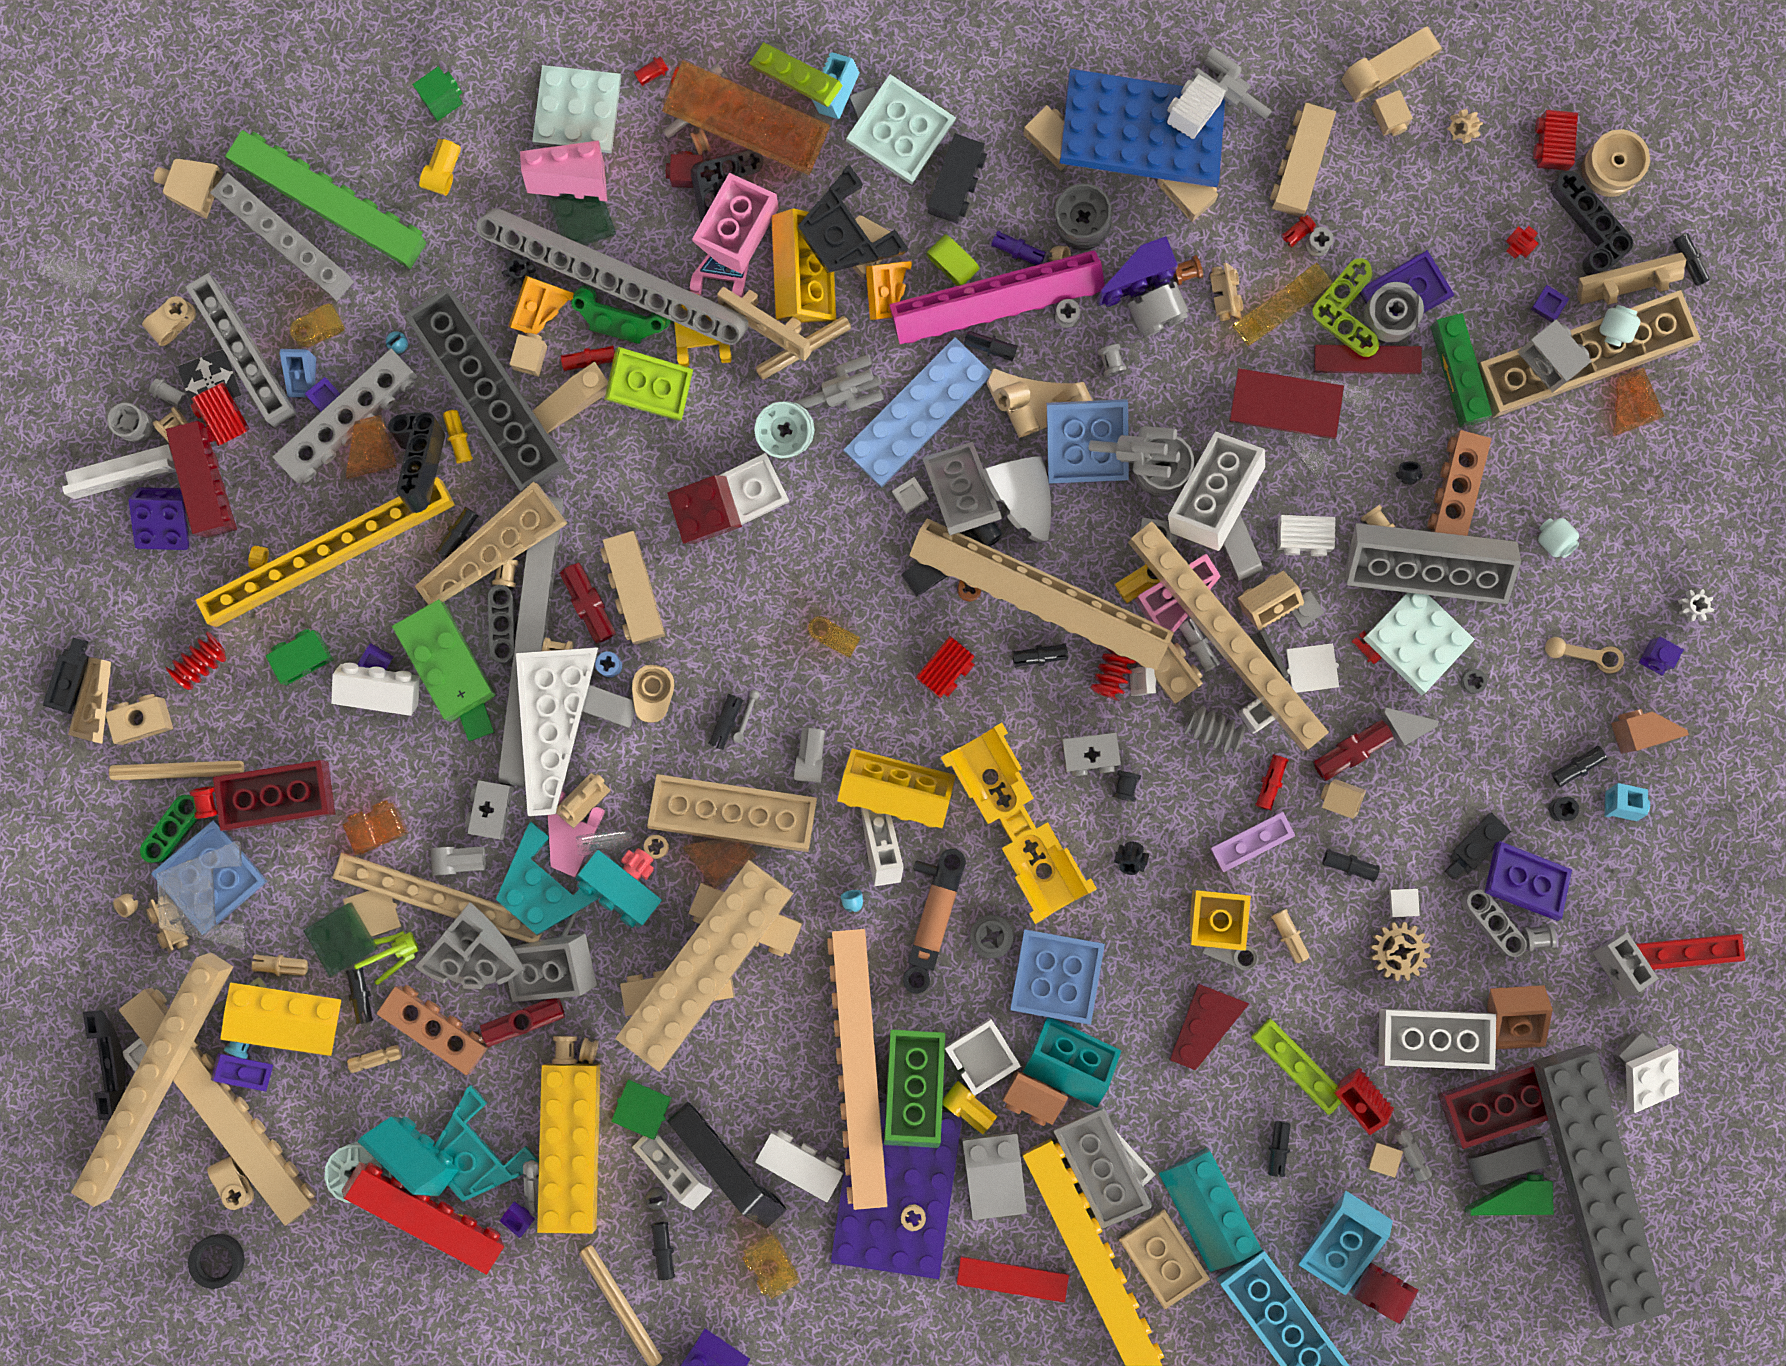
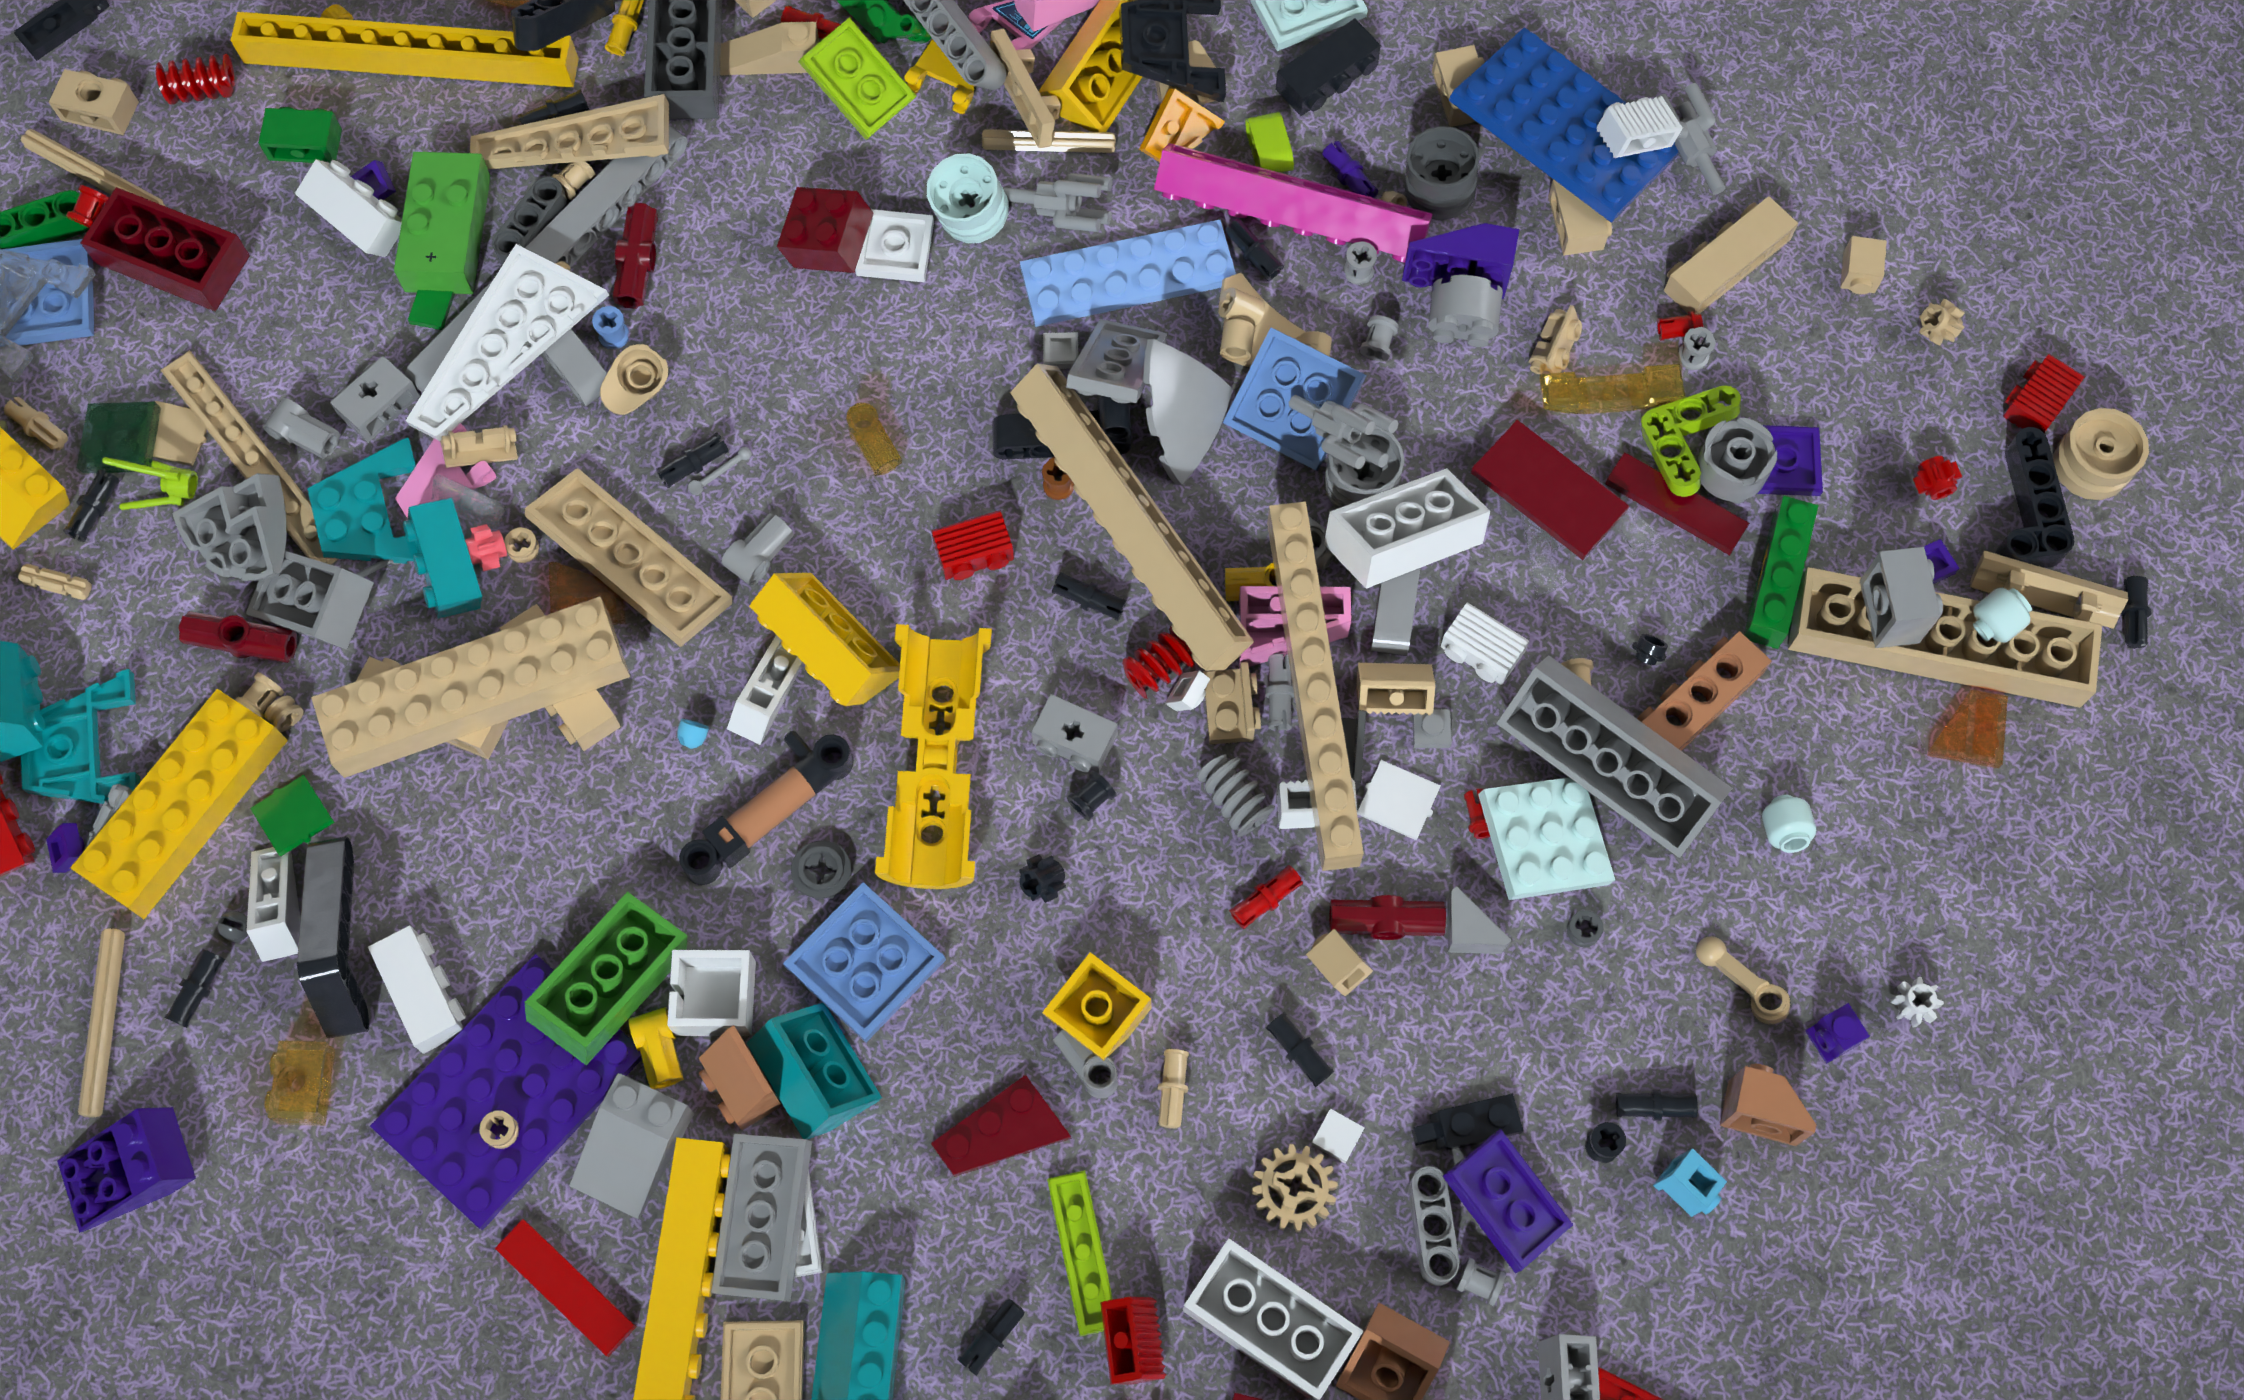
camera: 30 degrees right, 15 degrees down
(91, 703) = (65, 55): tan wing -> none
(375, 827) = (242, 345): clear orange brick -> none
(395, 1013) = (114, 542): nougat brick -> none
(633, 587) = (693, 268): tan brick -> none
(859, 1069) = (559, 918): light nougat brick -> none
(1188, 270) = (1524, 295): dark orange bush -> none
(1252, 842) = (1198, 949): lavender plate -> none
(1370, 76) = (1890, 217): tan beam -> none

